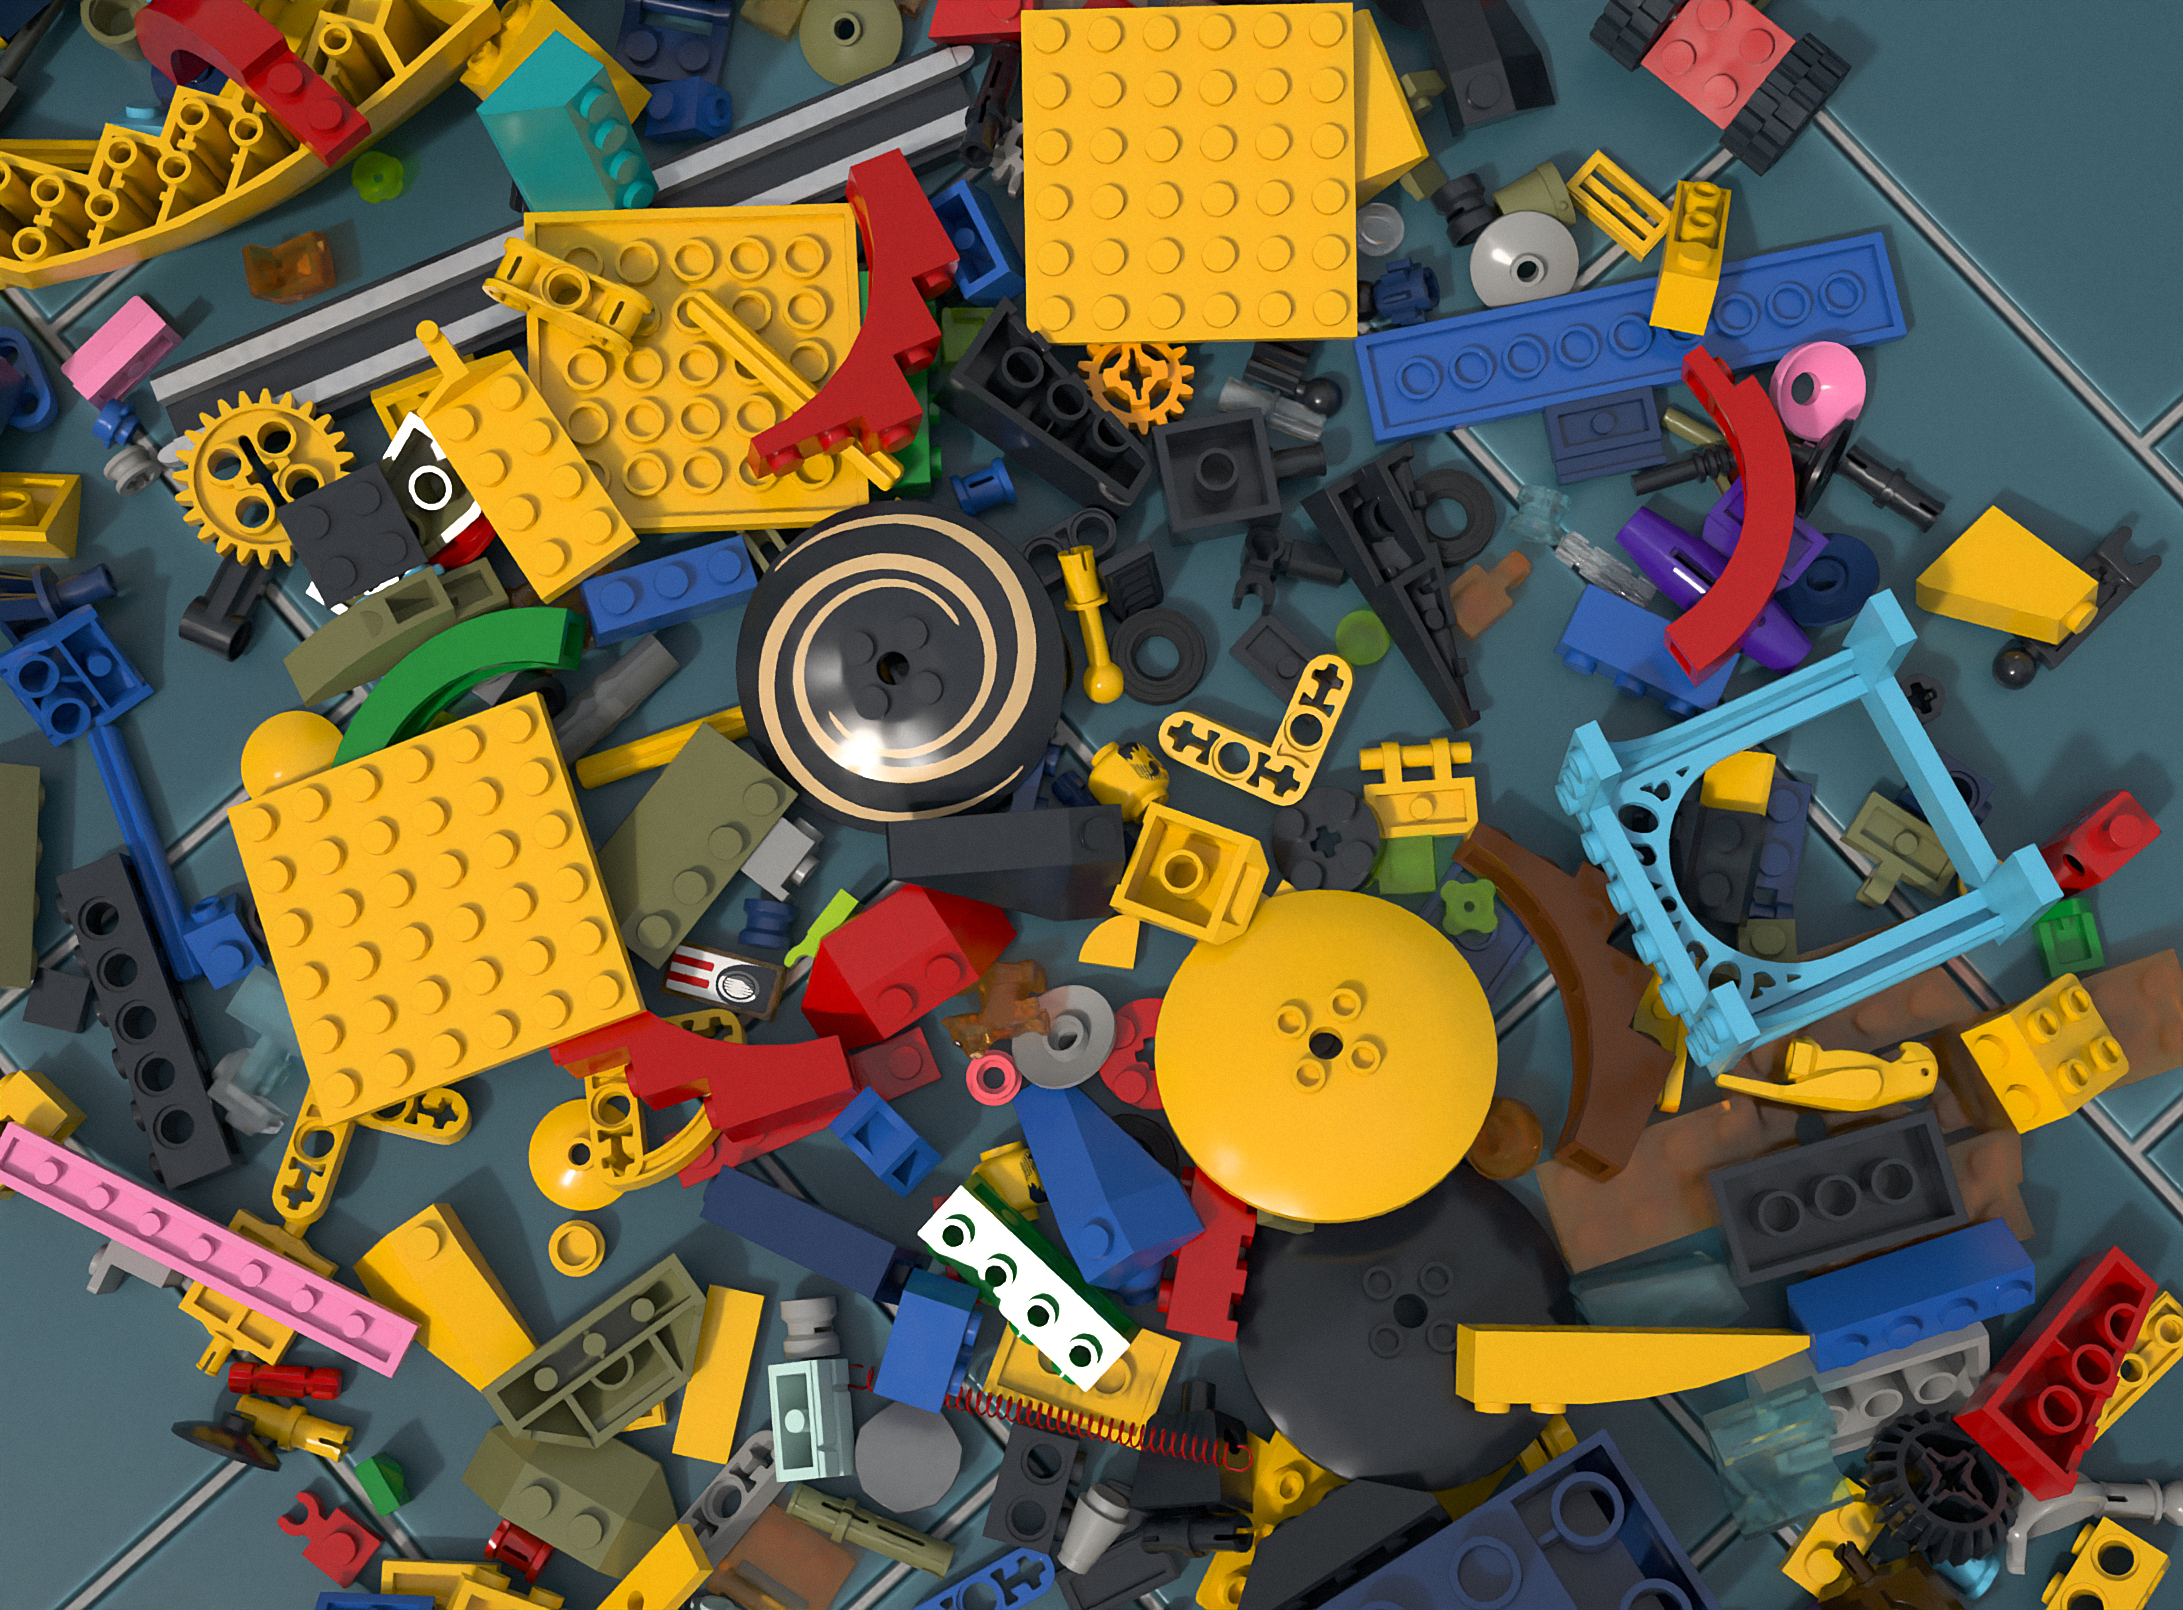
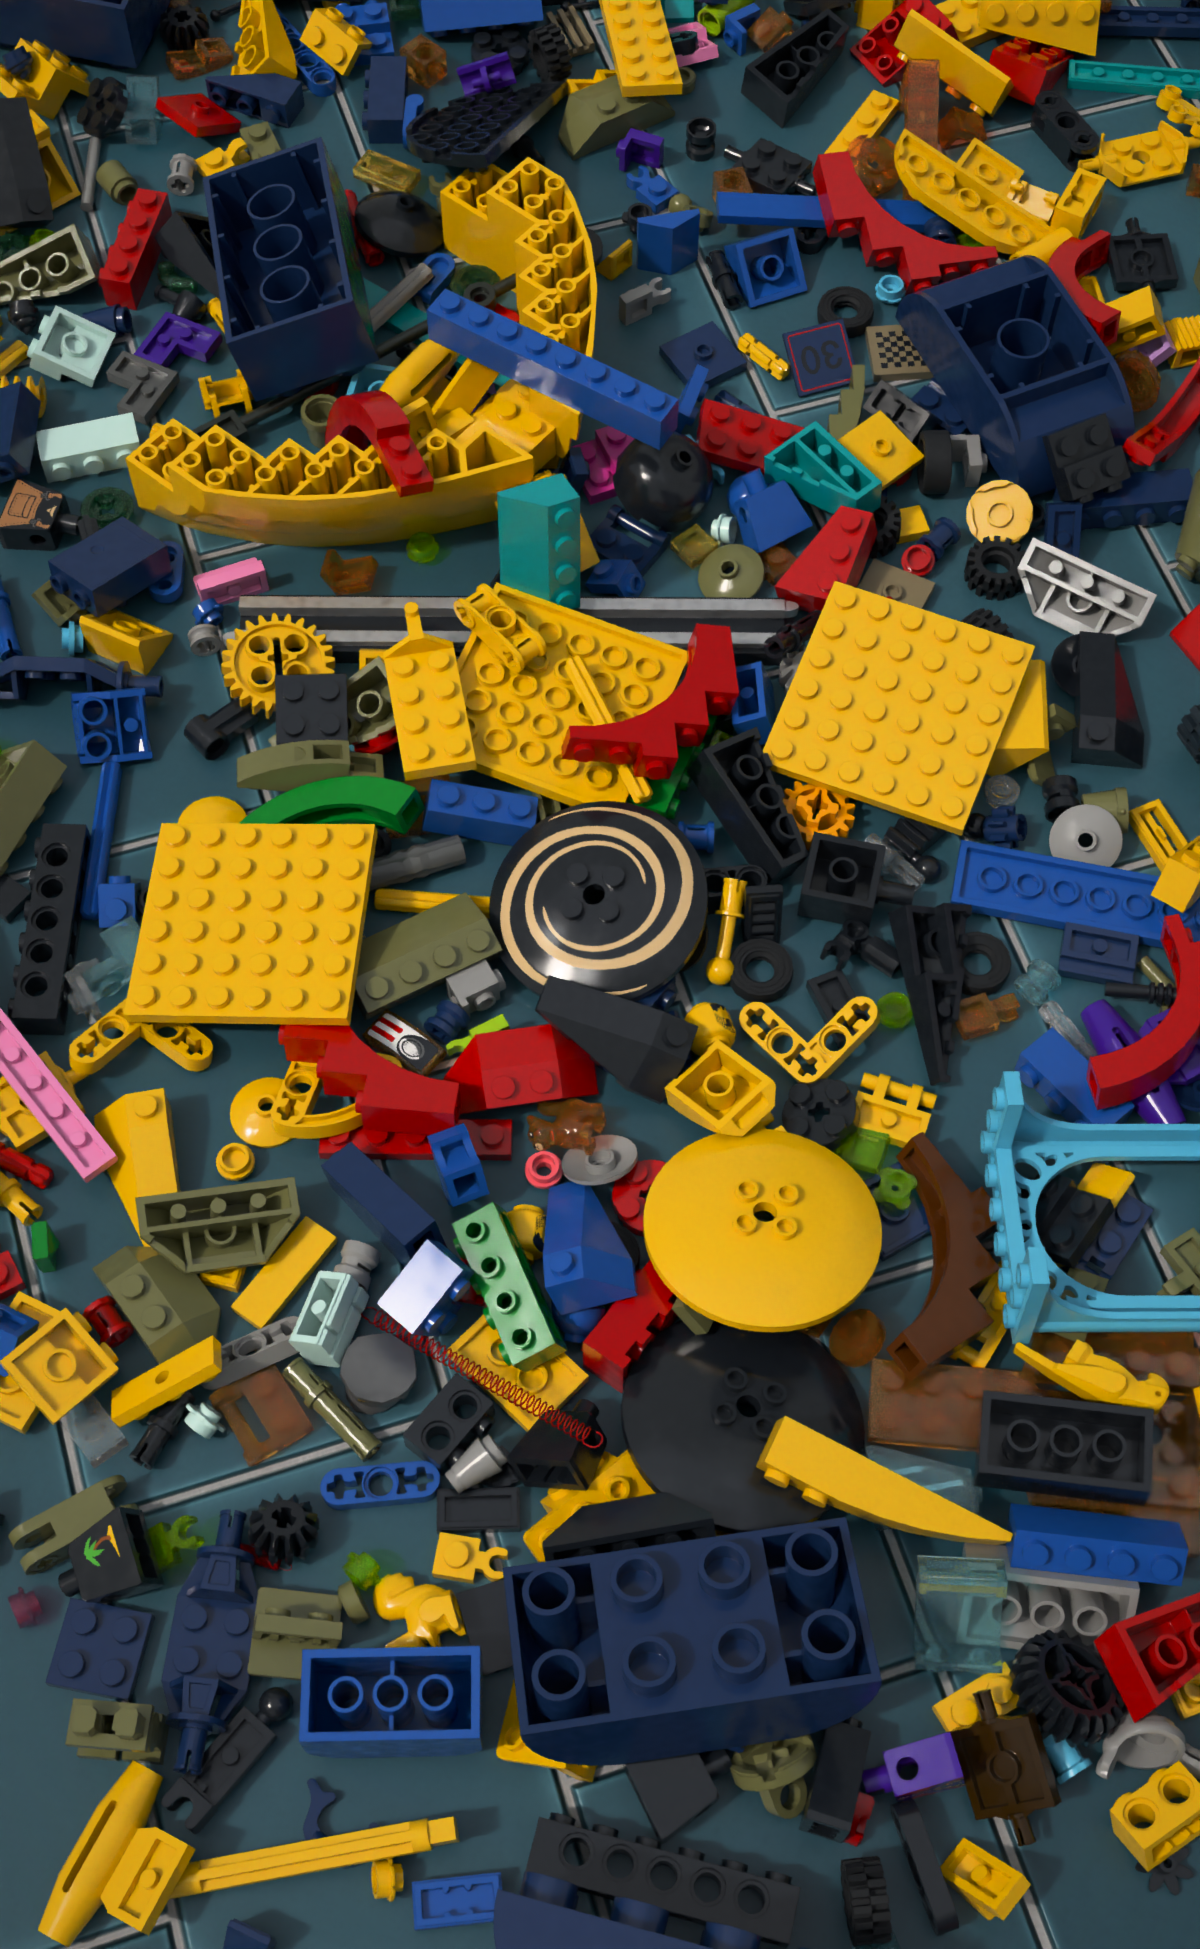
camera: 20 degrees right, 20 degrees down
(1112, 943) = (656, 1122): yellow tile -> none
(1196, 1534) = (543, 1490): black pin -> none

